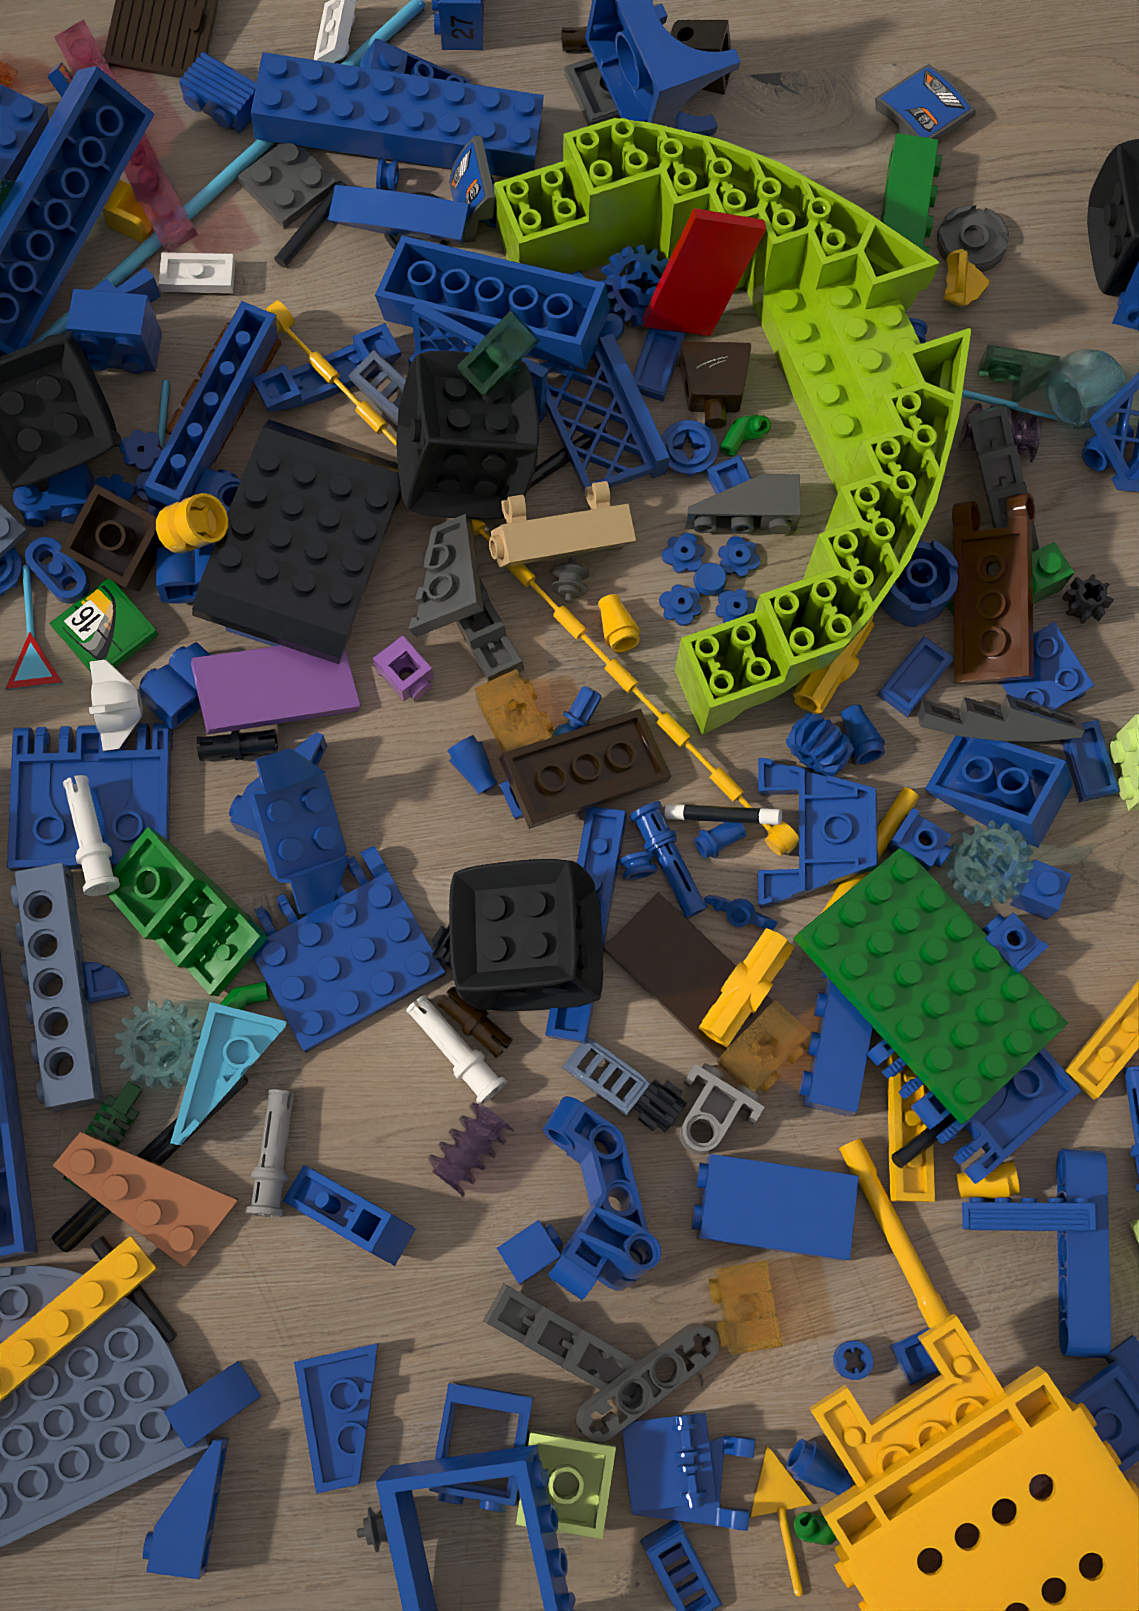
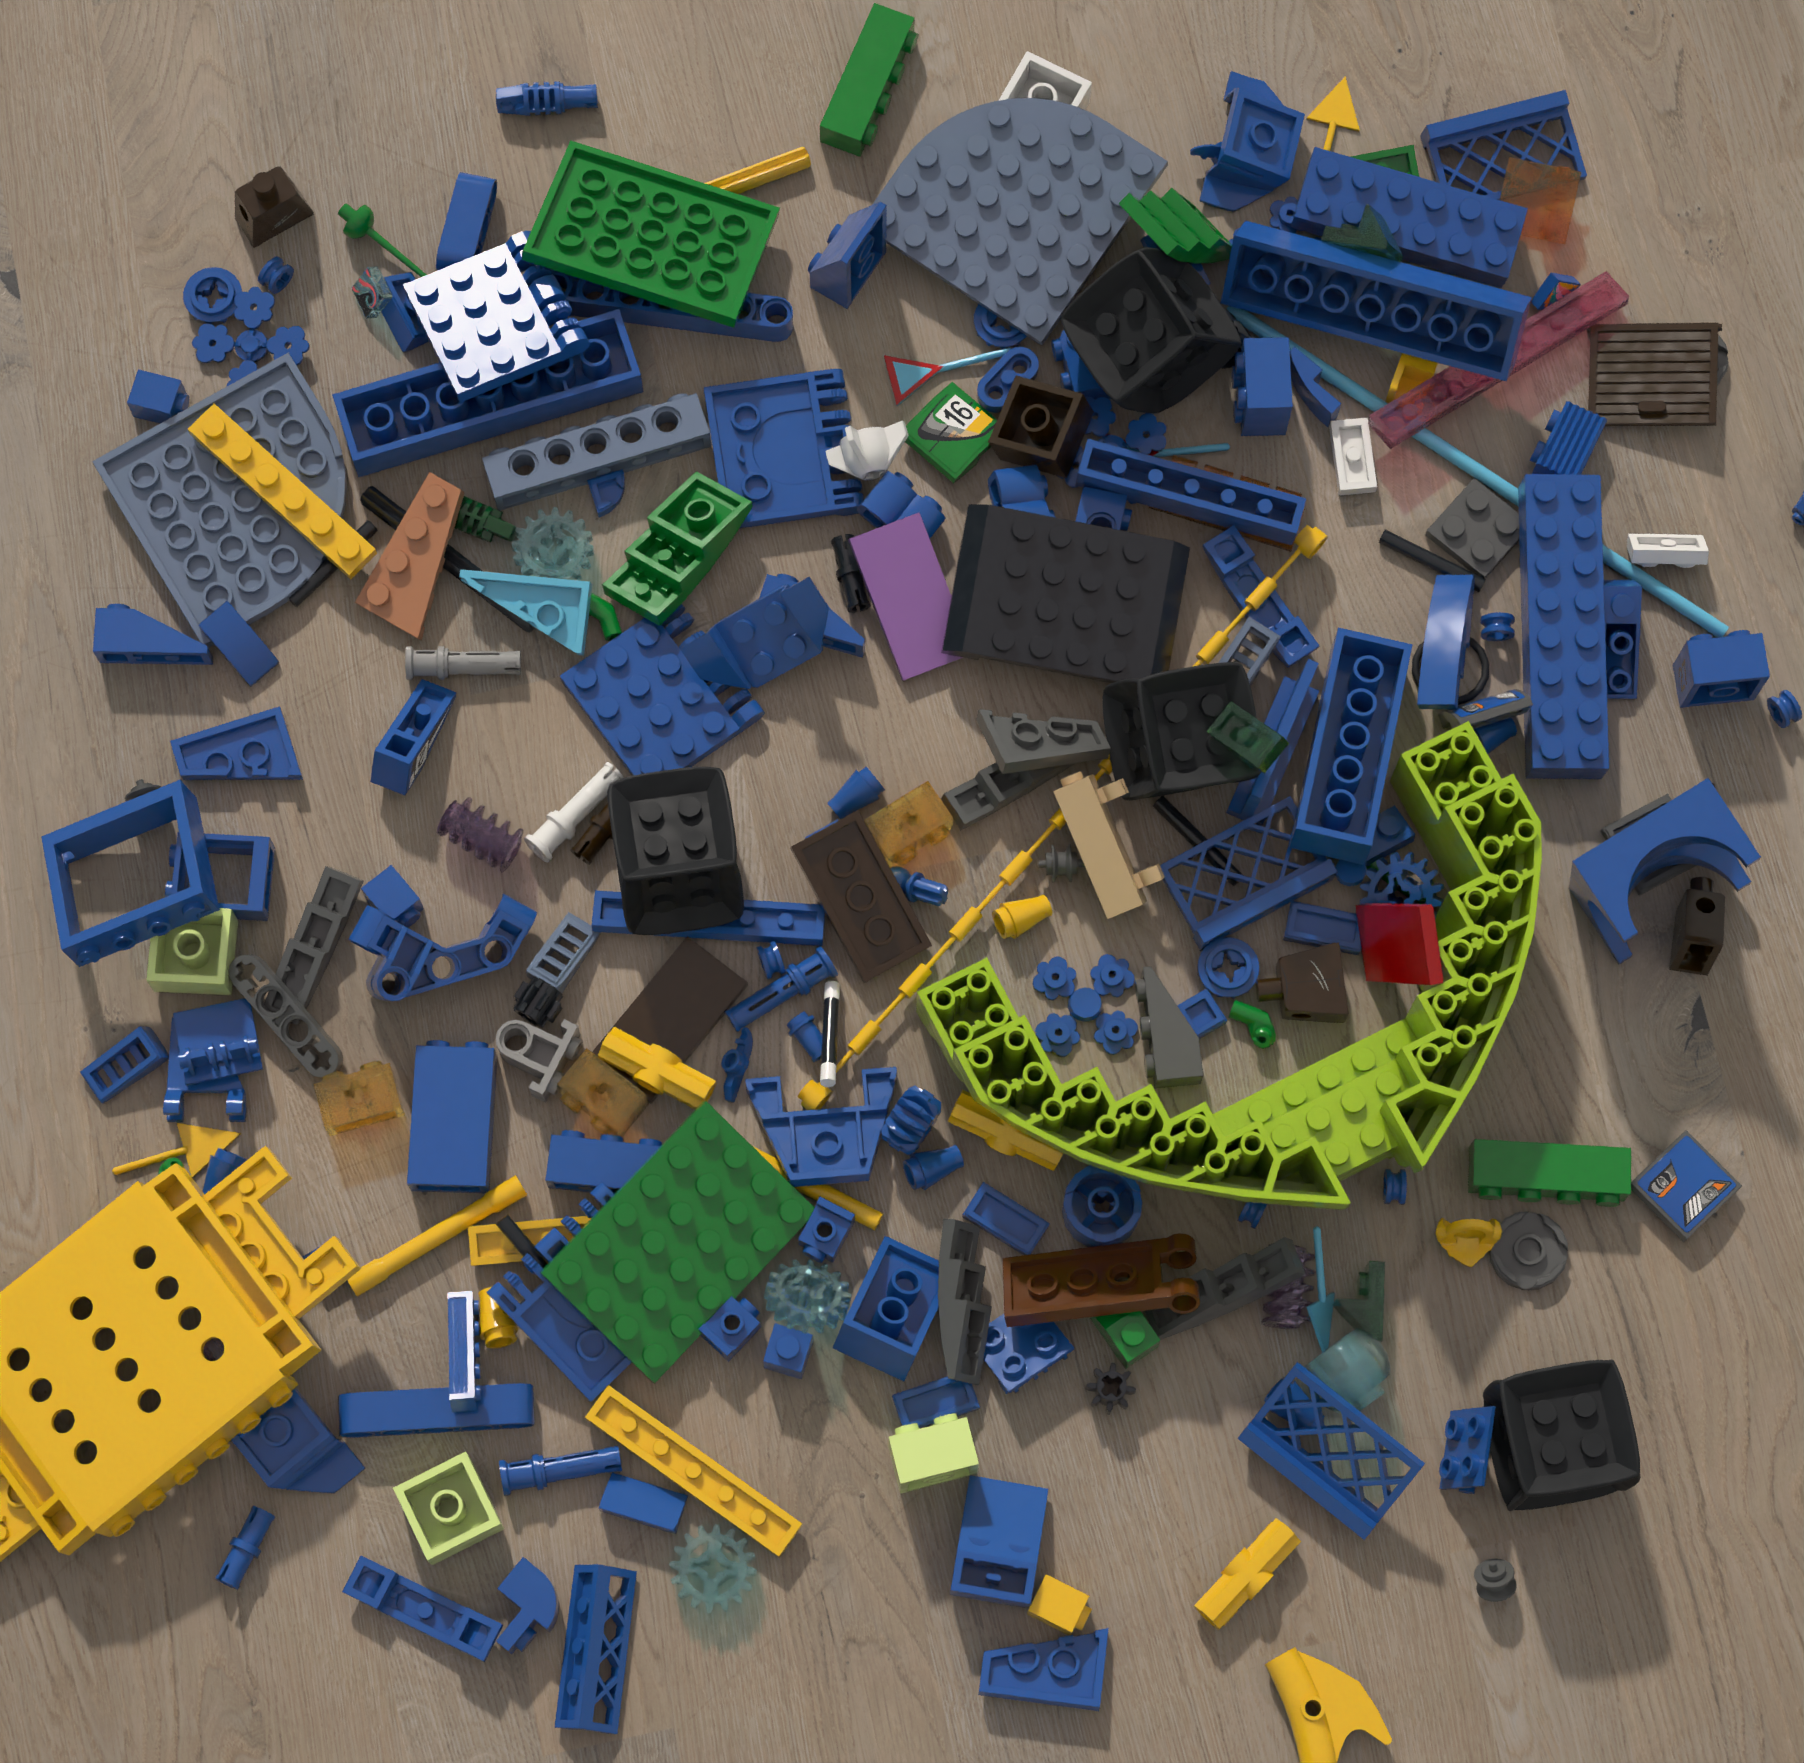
camera: 85 degrees right, 0 degrees up
(92, 851) = (722, 458): white pin -> none
(192, 523) = (1052, 488): yellow wheel -> none
(402, 658) = (947, 703): medium lavender brick -> none
(865, 1357) = (318, 1191): blue bush -> none

